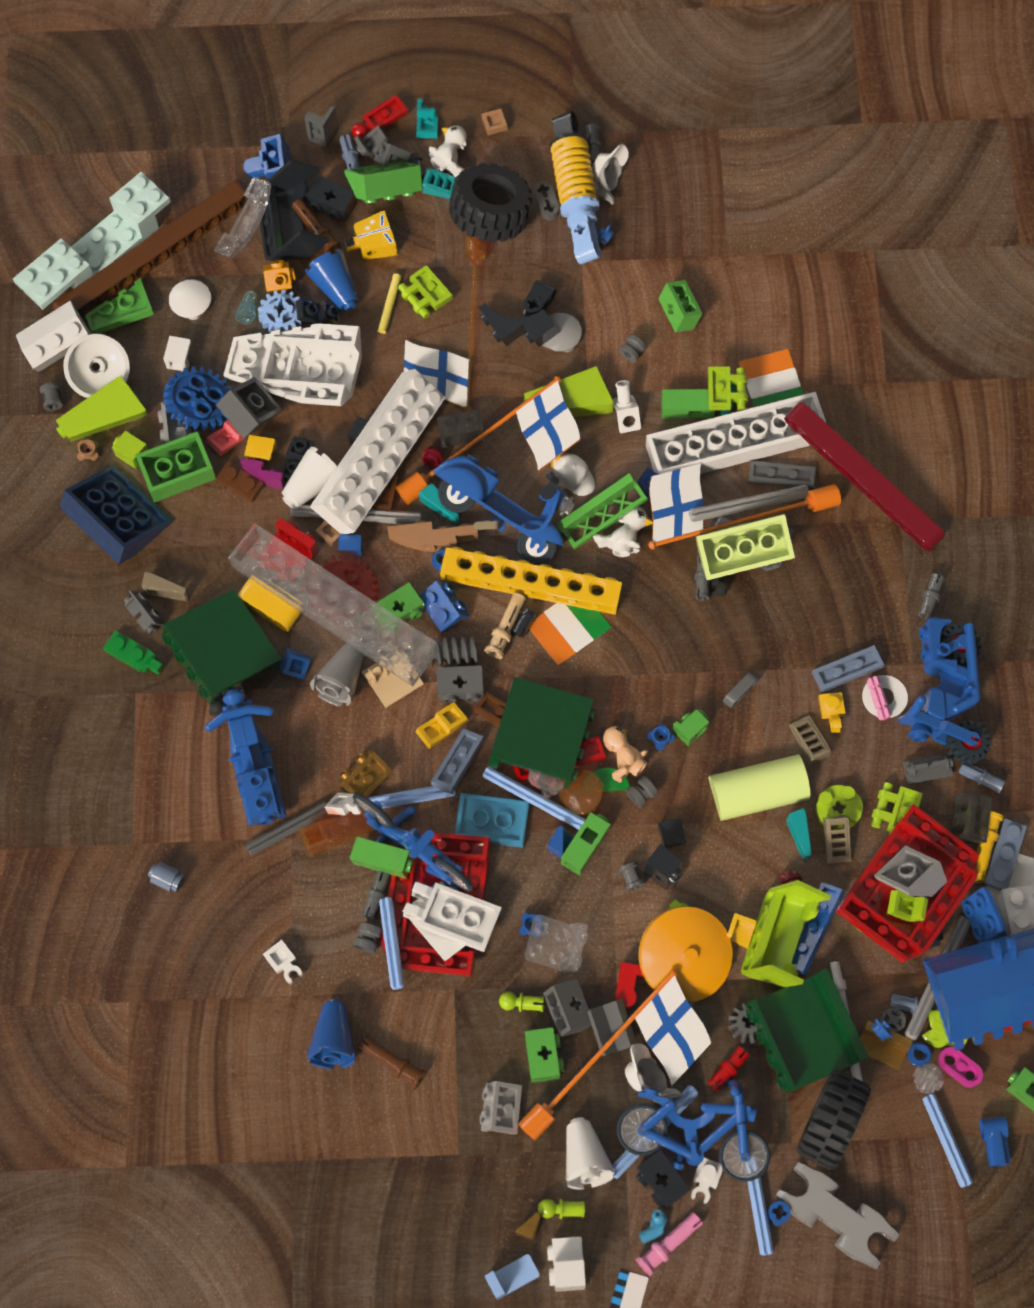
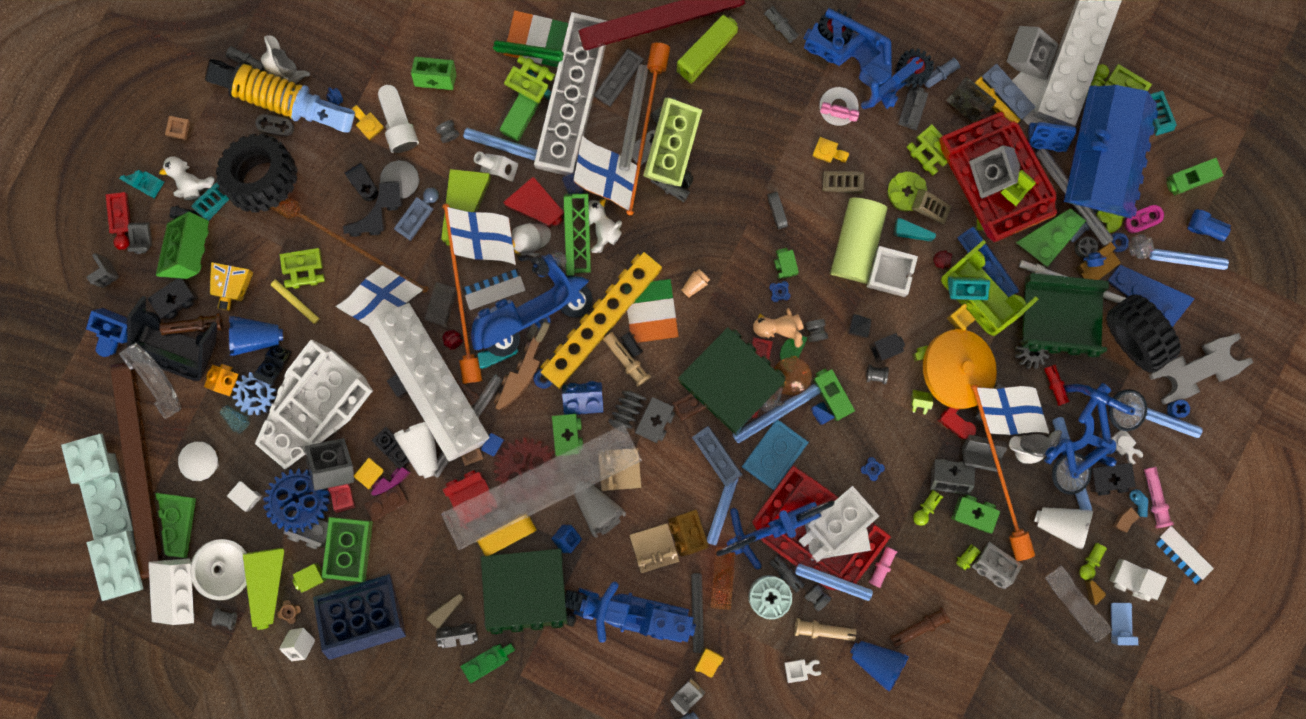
camera: 65 degrees left, 15 degrees up
(59, 472) = (297, 644): none -> white panel
(196, 861) = (687, 696): none -> light grey bracket
(242, 864) = (708, 662): none -> yellow panel
(330, 752) = (654, 548): none -> tan hinge
(332, 953) = (815, 629): none -> tan pin
(341, 899) = (759, 590): none -> light aqua wheel
(342, 804) = (703, 560): white plate -> none
(349, 152) = (138, 261): sand blue axle -> none
(382, 857) = (764, 555): bright green brick -> none
(386, 151) = (157, 229): dark grey bracket -> none
(435, 988) = (883, 567): none -> bright pink pin
(442, 725) = (679, 452): yellow slope -> none
(493, 1072) = (968, 557): none -> lime pin
(507, 1215) = (1077, 604): none -> clear slope
(509, 473) = (493, 289): none -> white sticker
(536, 363) = (417, 214): none -> sand blue plate
(556, 944) = (900, 459): clear bracket -> none
(597, 278) = (367, 123): none -> yellow plate
(604, 307) = (399, 132): none -> white piece
(610, 458) = (535, 204): none -> red slope
(621, 650) = (695, 283): none -> light nougat cone
(626, 1221) = (1126, 519): none -> medium nougat piece
(631, 934) = (921, 399): none -> lime tile
(649, 398) = (500, 143): none -> light blue axle
(745, 832) = (890, 271): none -> white piece
(754, 376) = (528, 50): none -> green axle
(774, 916) = (968, 288): none -> teal slope
(847, 668) = (804, 121): sand blue plate -> none
(860, 536) = (706, 48): none -> lime slope
(881, 979) = (1052, 237): none -> bright green wing
(883, 1123) = (1167, 300): none -> blue wing

